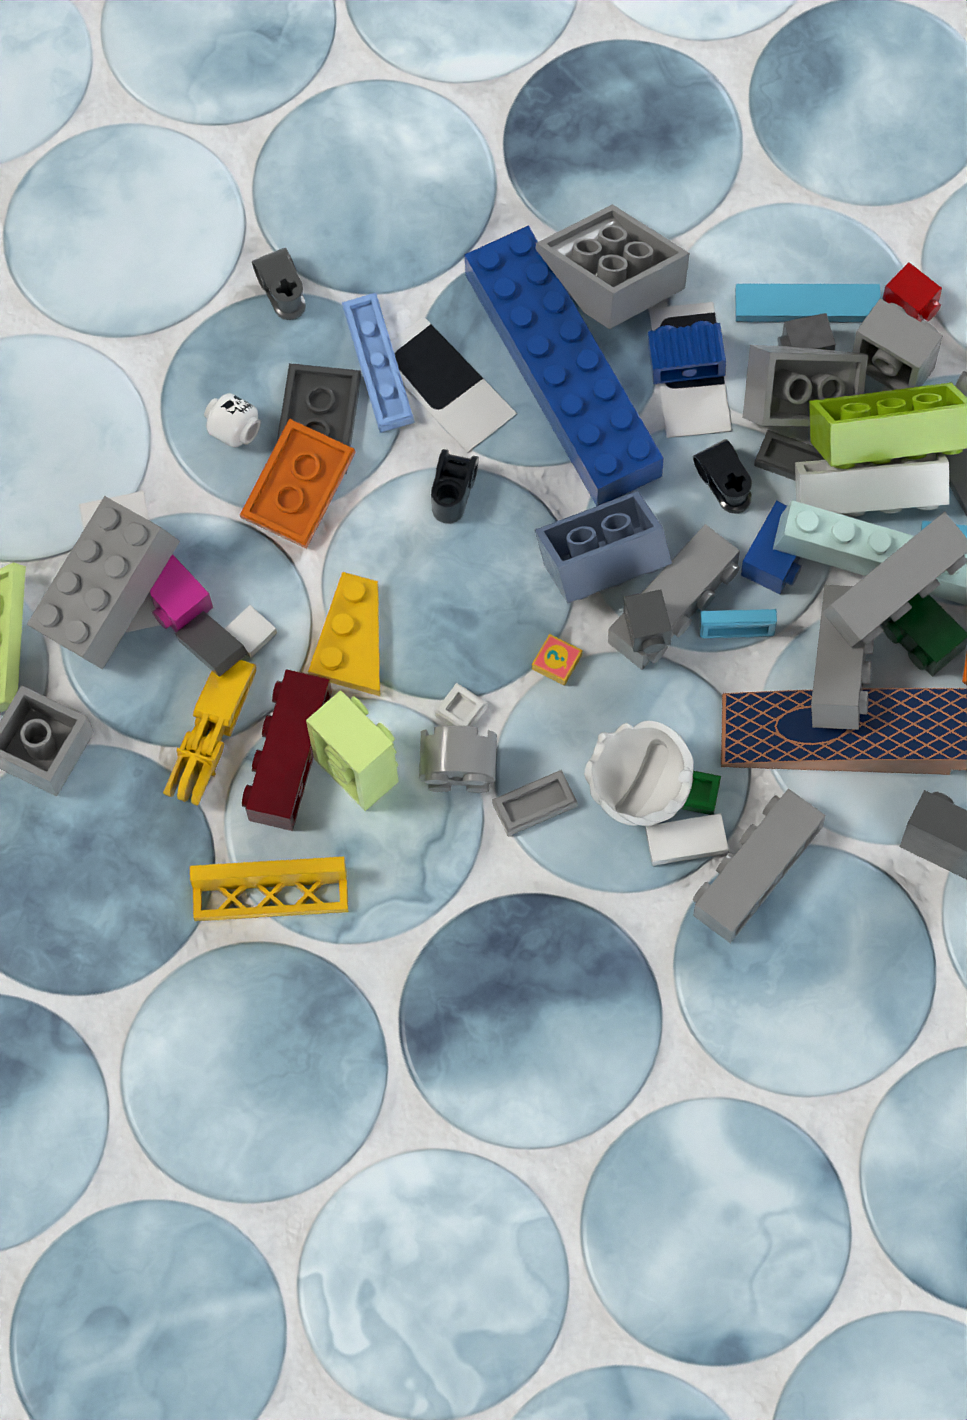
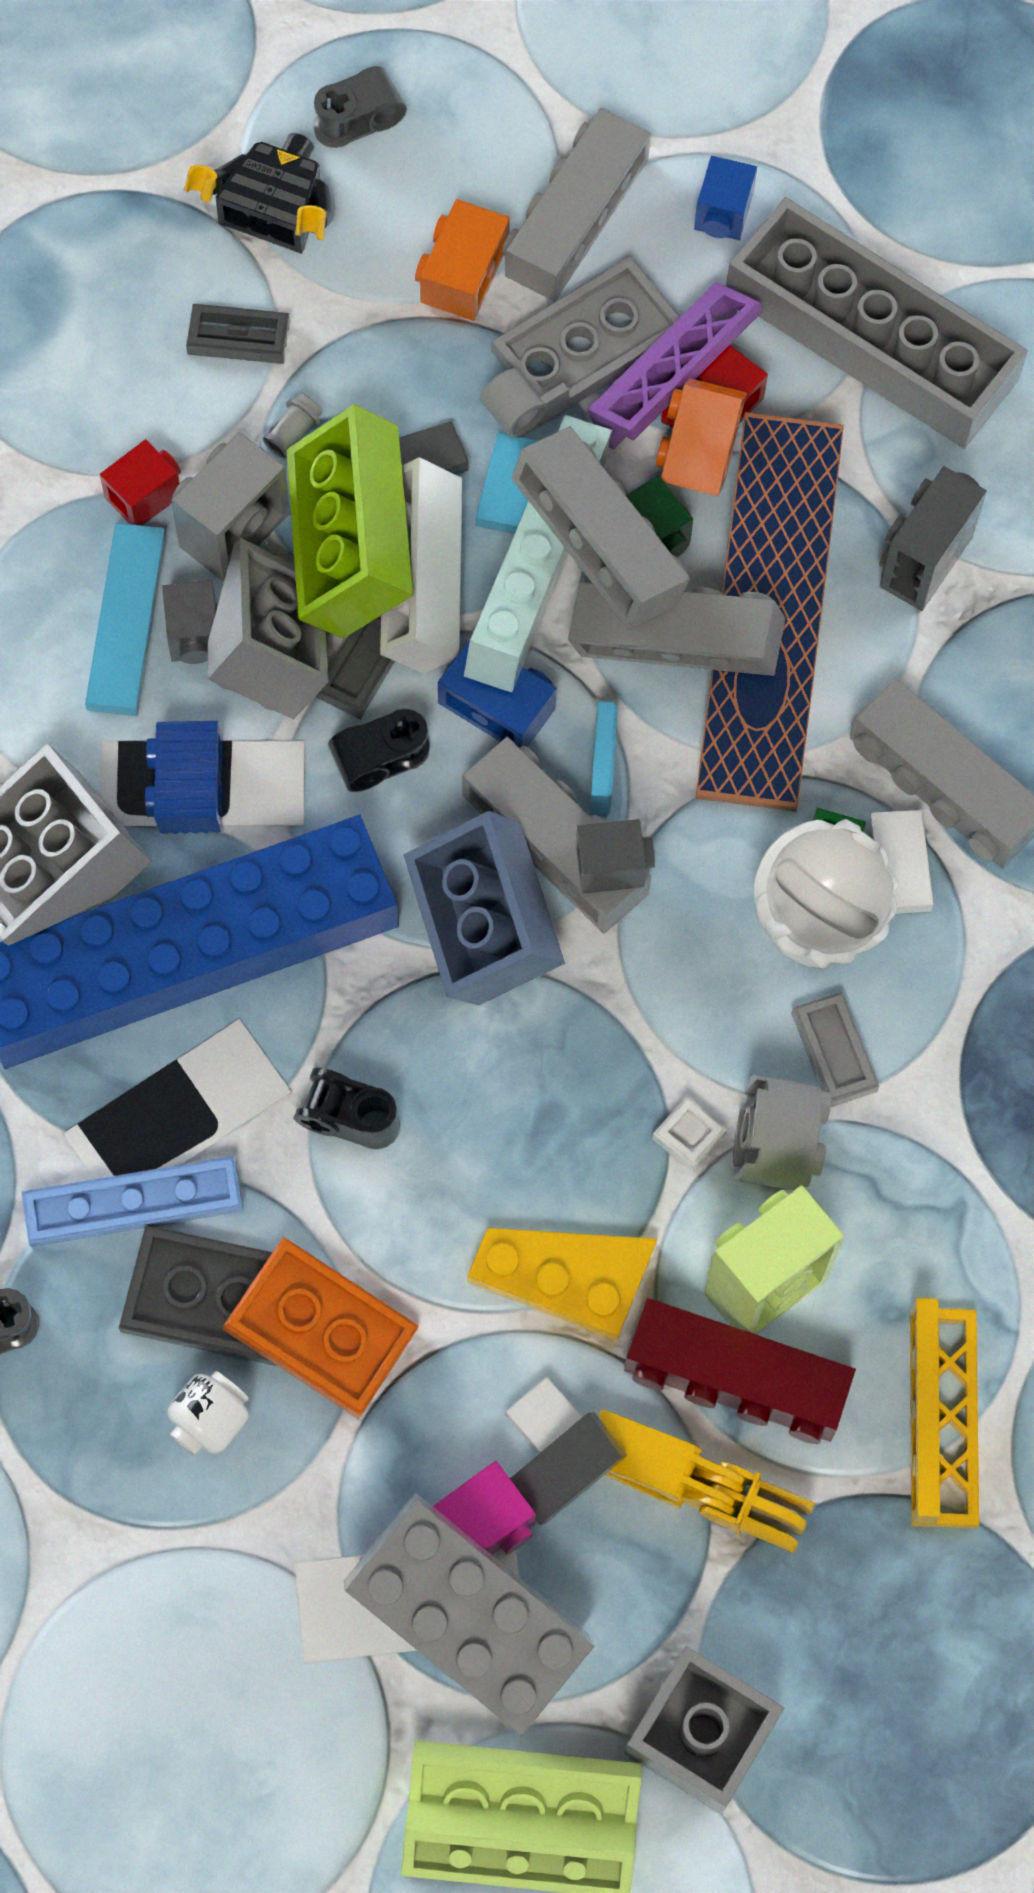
camera: 90 degrees left, 0 degrees up
(557, 659) = (627, 999): tile -> none

